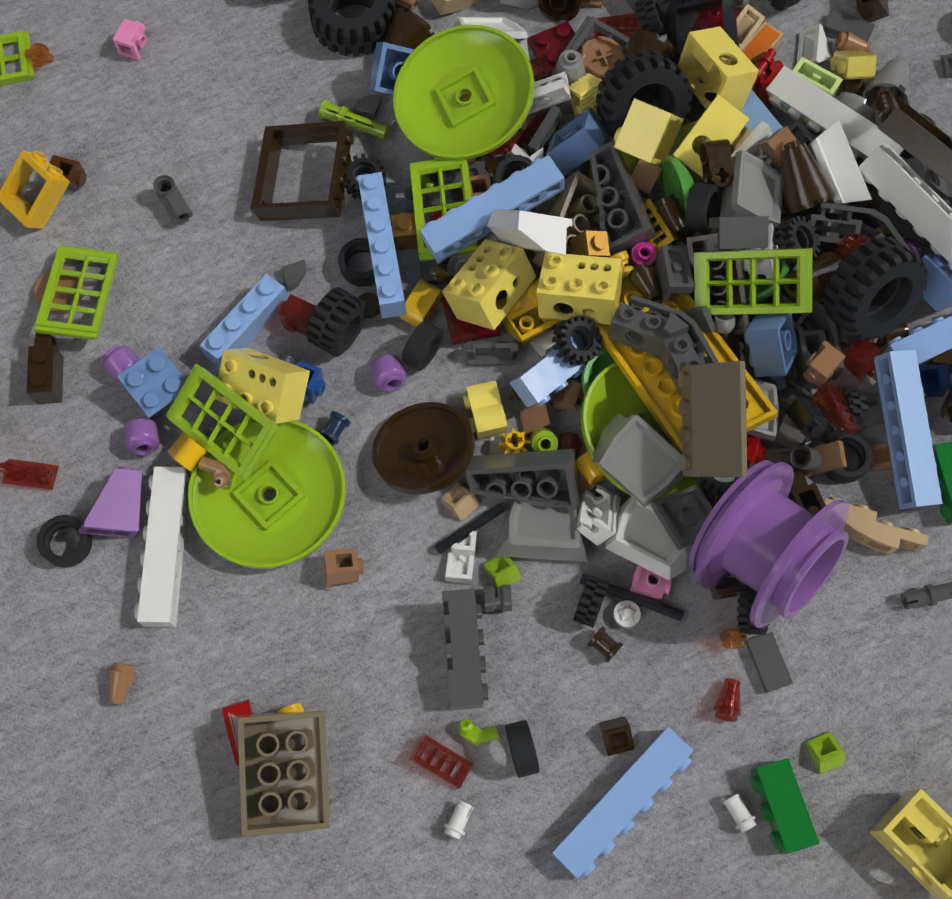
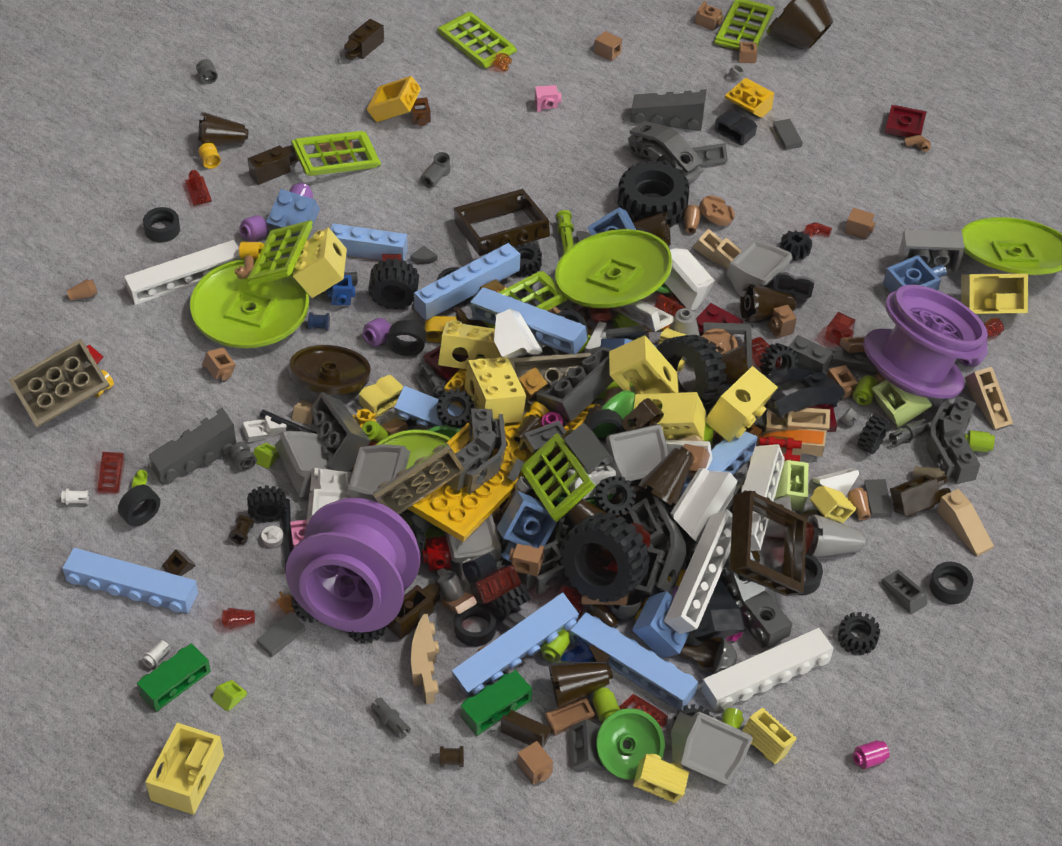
camera: 60 degrees right, 20 degrees down
(117, 506) = (197, 233): medium lavender slope -> none

